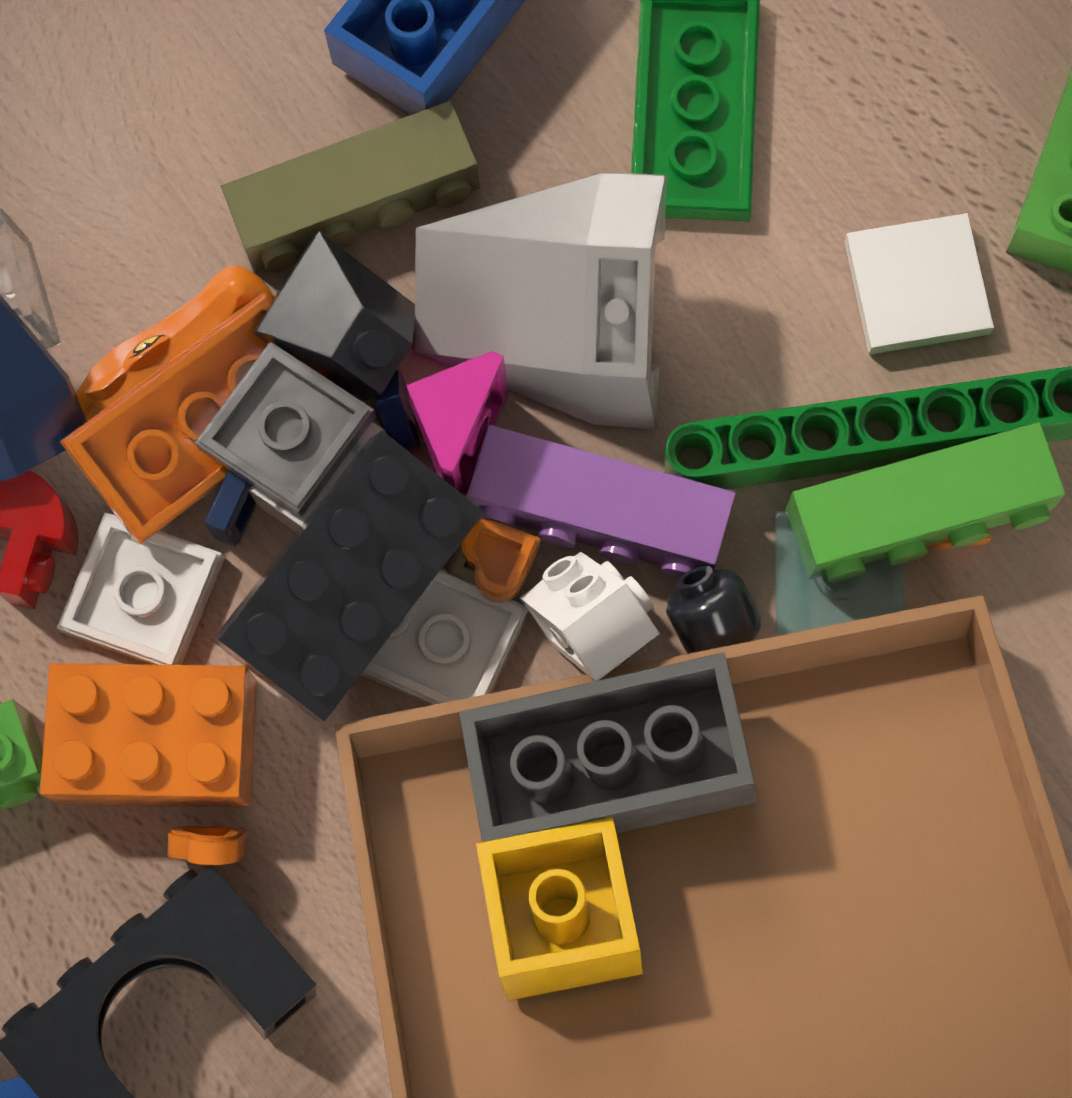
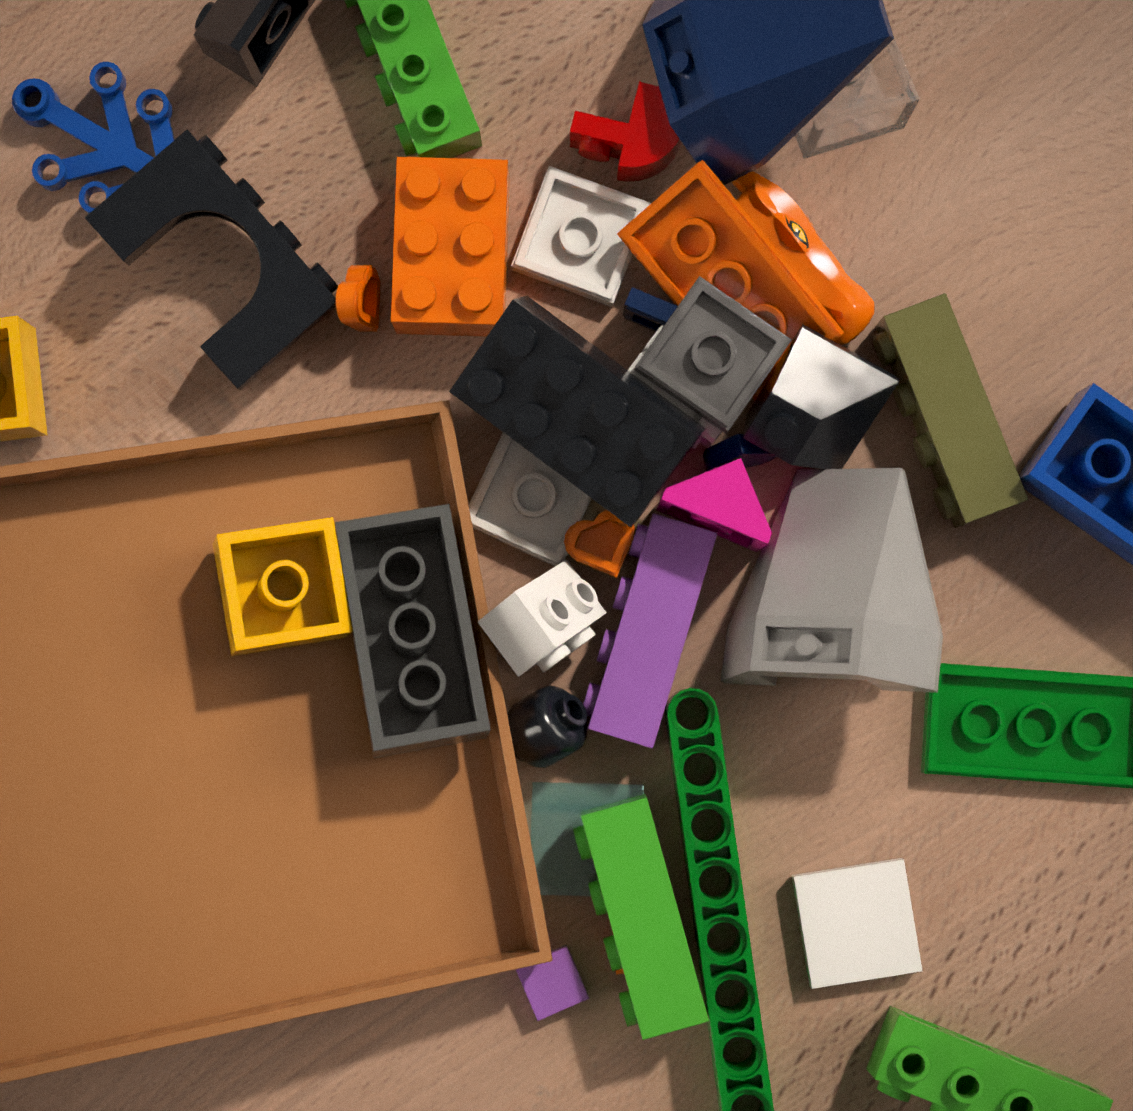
camera: 85 degrees right, 10 degrees up
(1011, 607) = (553, 984): none -> medium lavender tile

